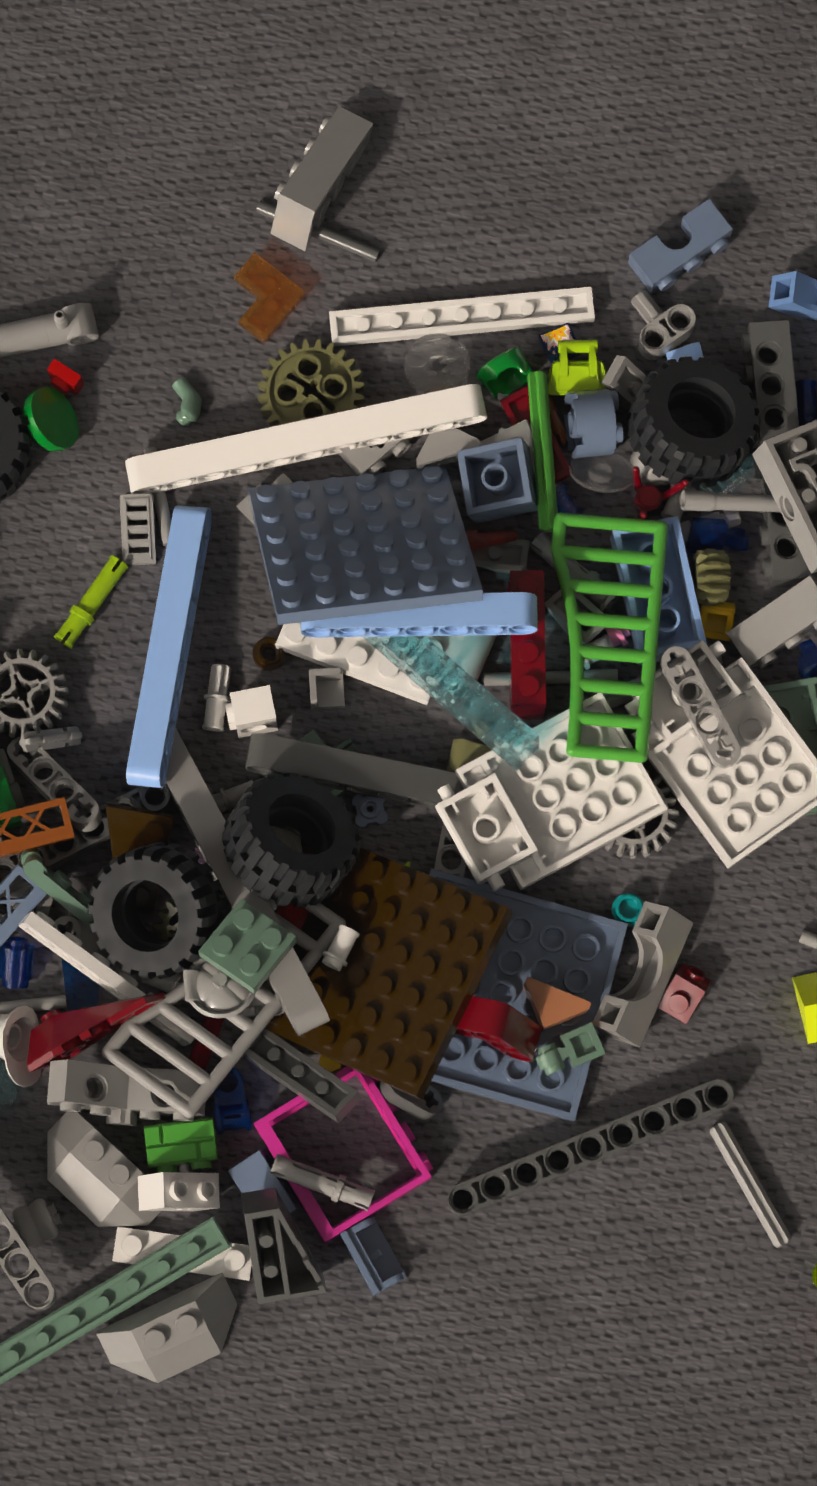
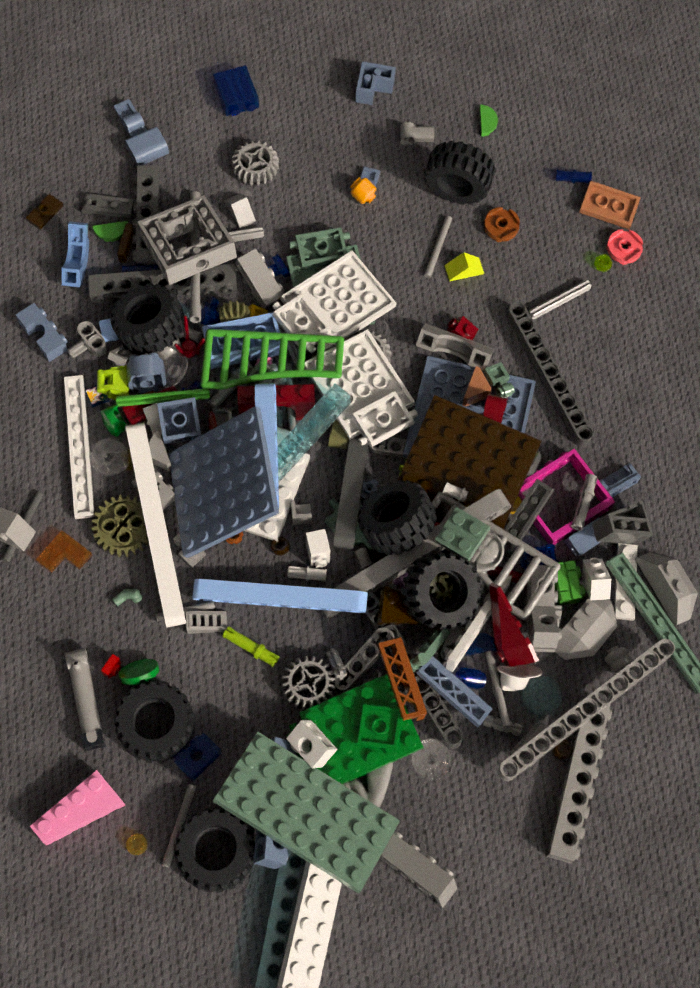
camera: 95 degrees left, 10 degrees down
(627, 908) = (418, 357): teal plate -> none
(697, 708) = (310, 309): light grey beam -> none

